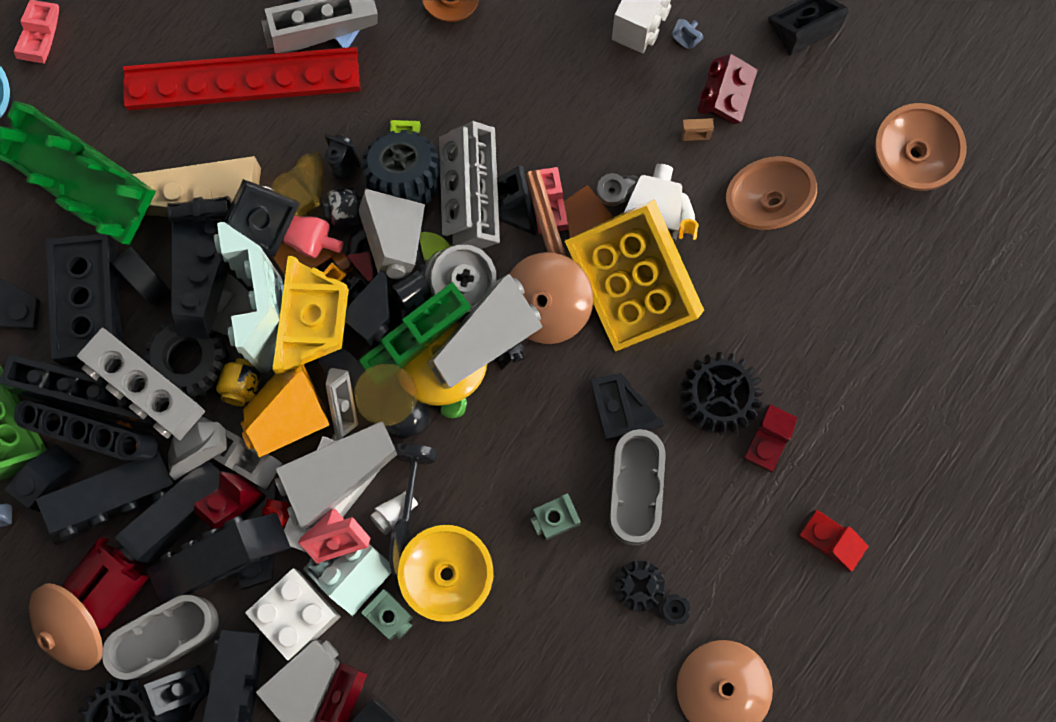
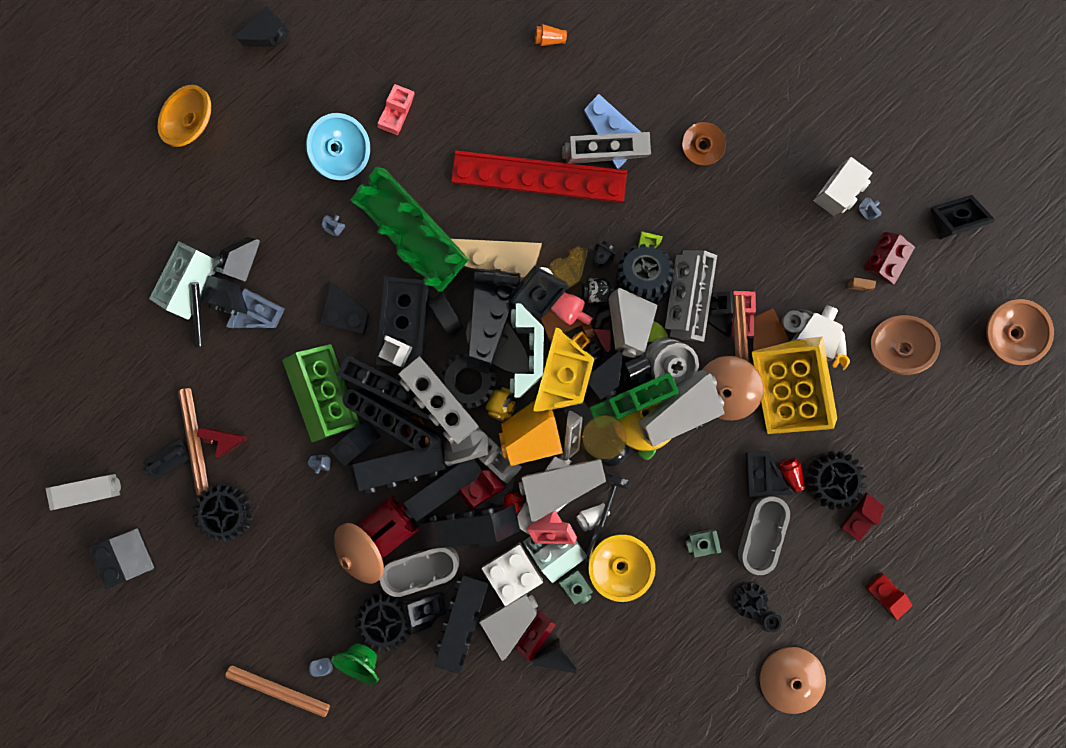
camera: 10 degrees right, 10 degrees up
(73, 331) = (395, 351): none -> white panel
(660, 397) = (793, 474): none -> red cone

